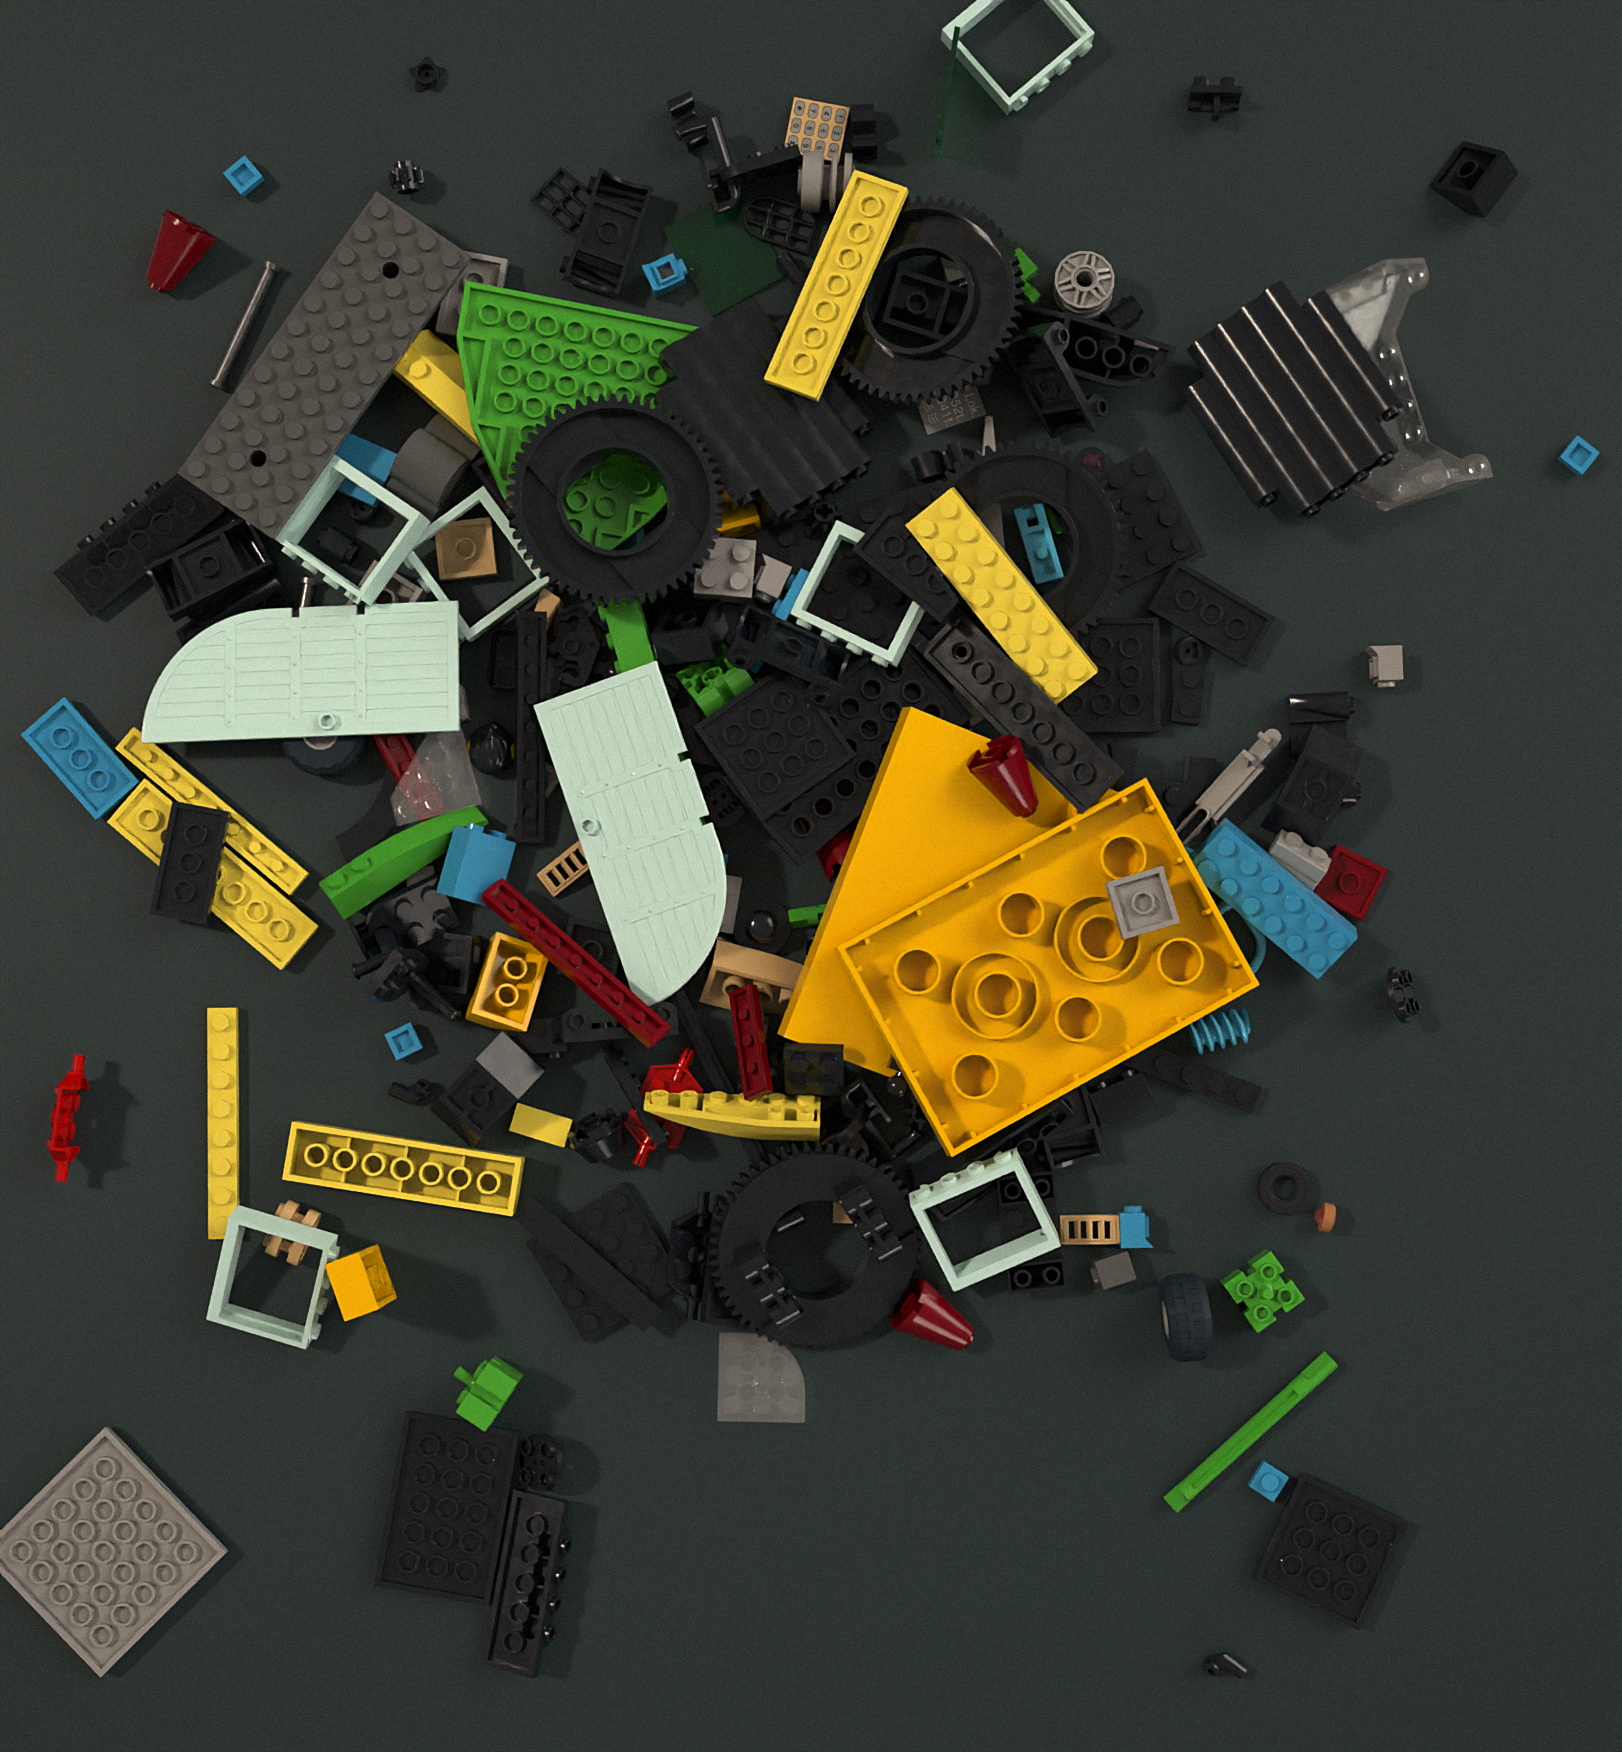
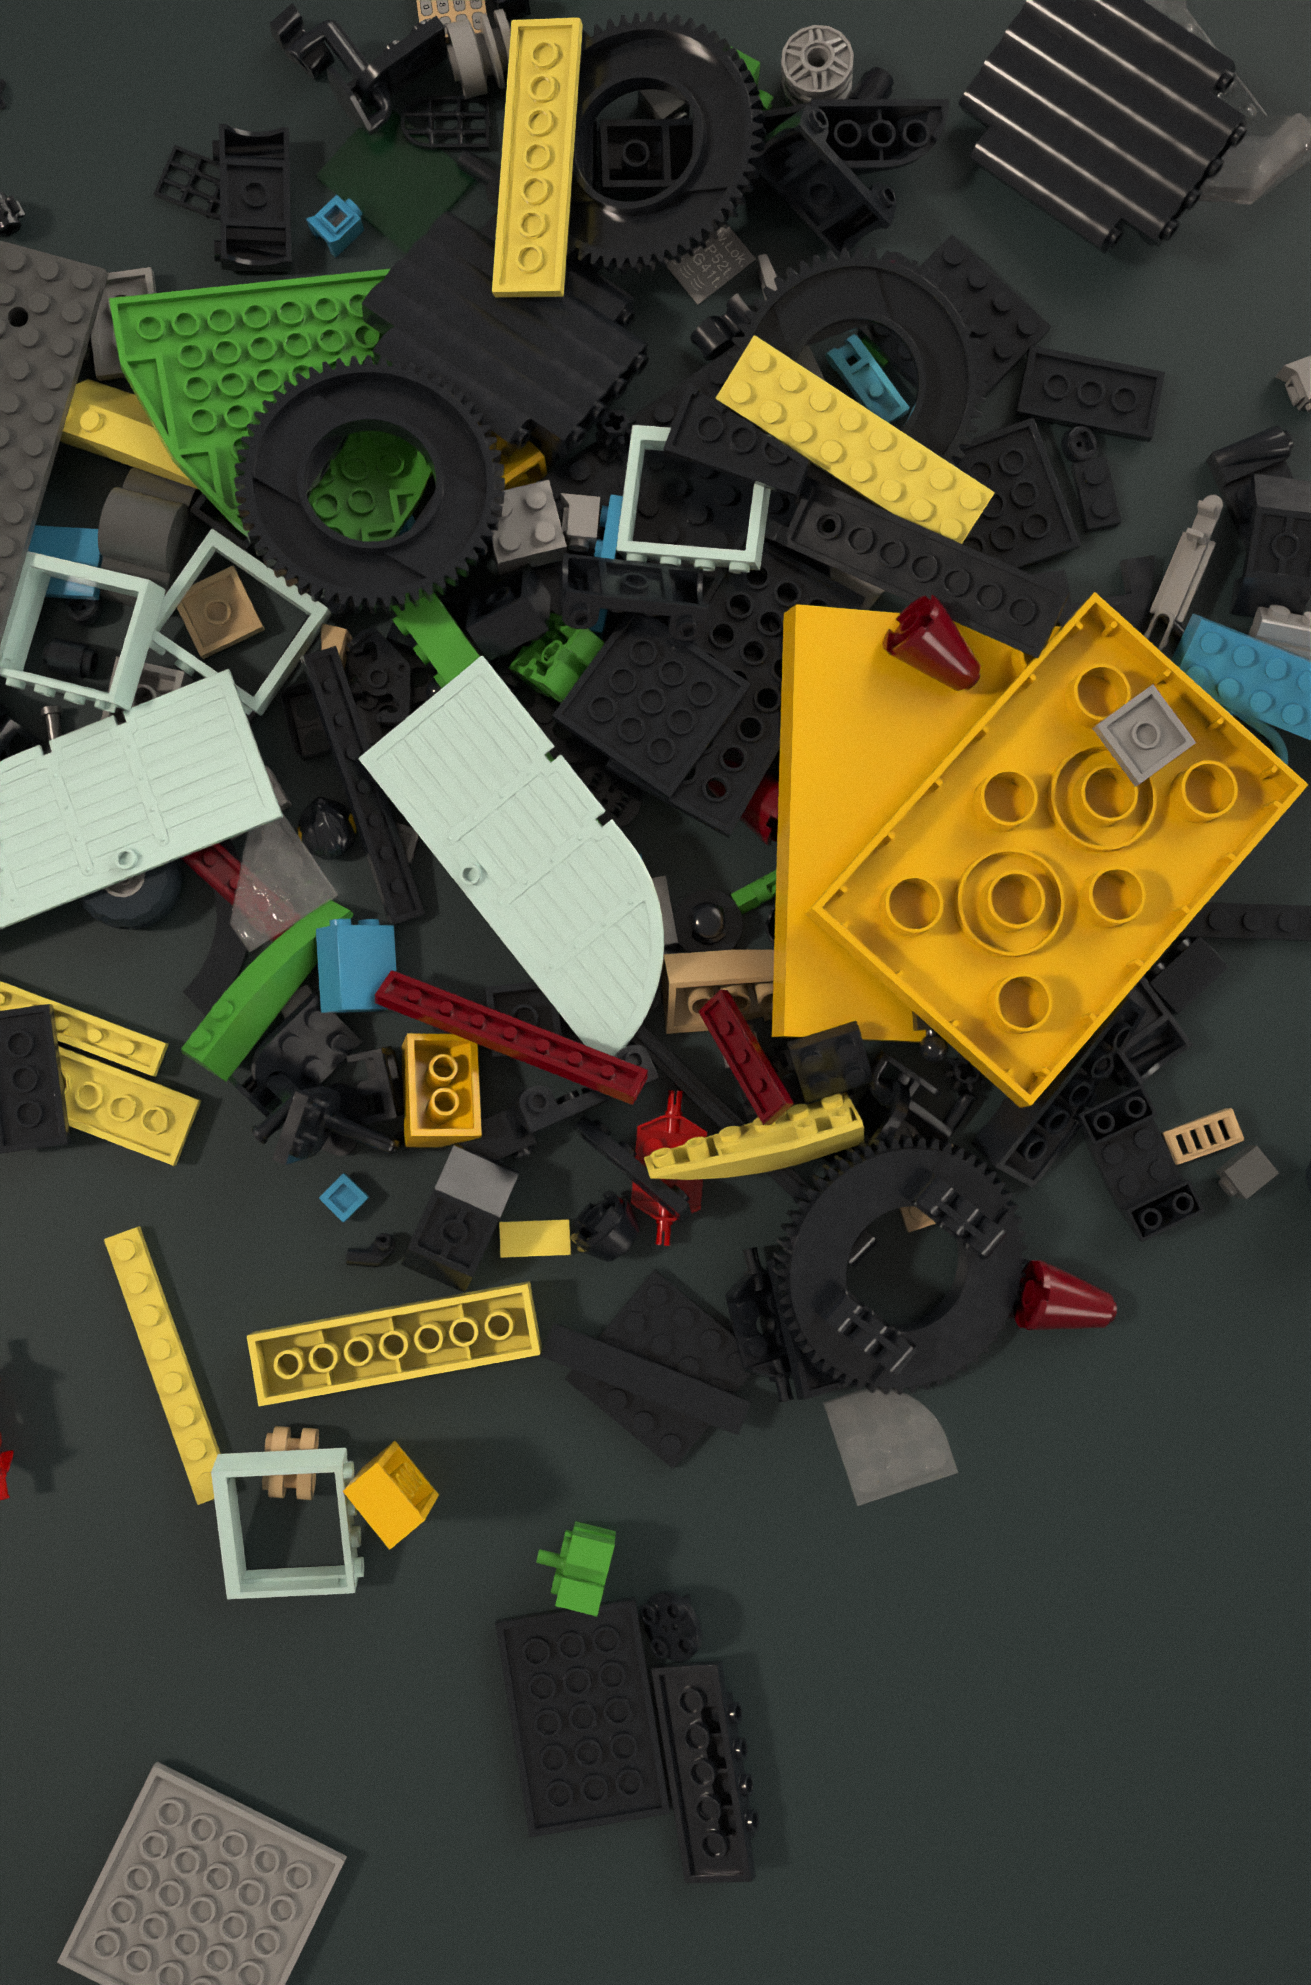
camera: 25 degrees left, 0 degrees up
(570, 852) = (480, 930): tan slope -> none
(1002, 1256) = (1119, 1201): light aqua window -> none
(1133, 1228) = (1253, 1117): dark azure window -> none
(1220, 1030) = (1270, 855): medium azure piece -> none

